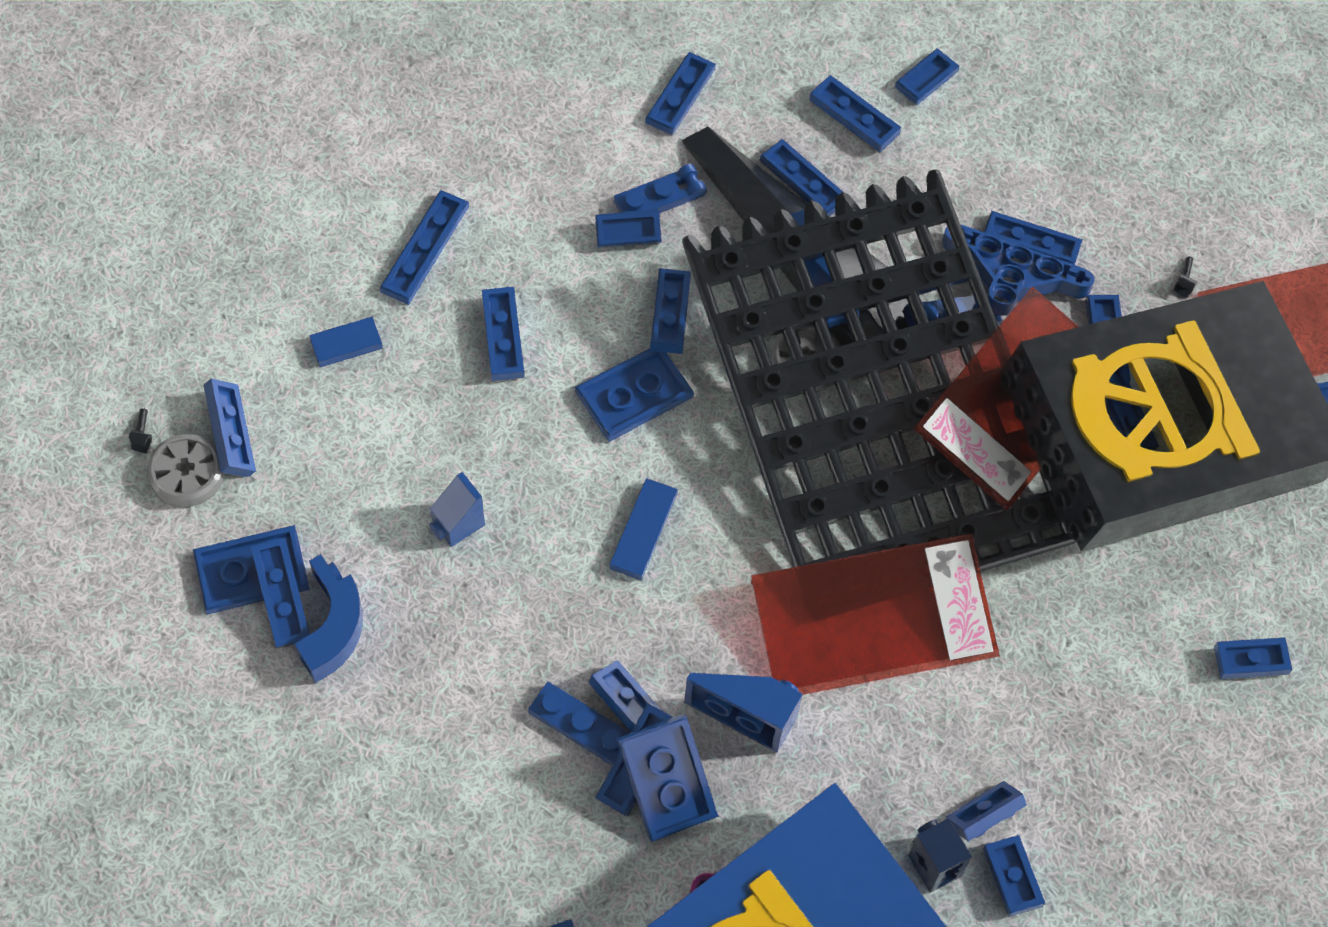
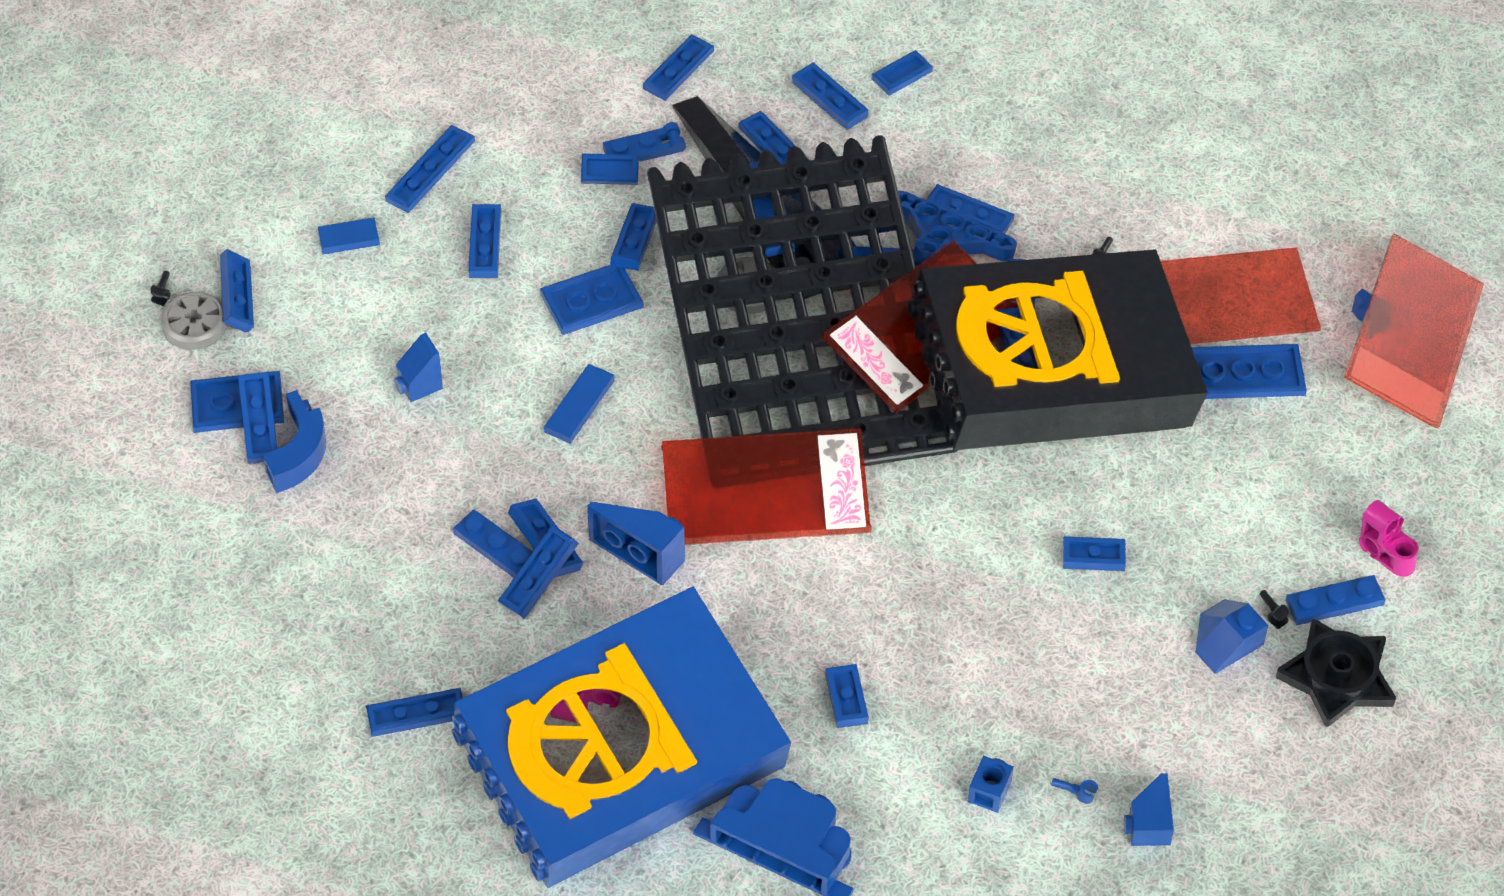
camera: 10 degrees right, 10 degrees down
(667, 777) = (560, 586): blue tile -> none
(939, 854) = (781, 667): dark blue brick -> none
(987, 810) = (842, 641): blue plate -> none

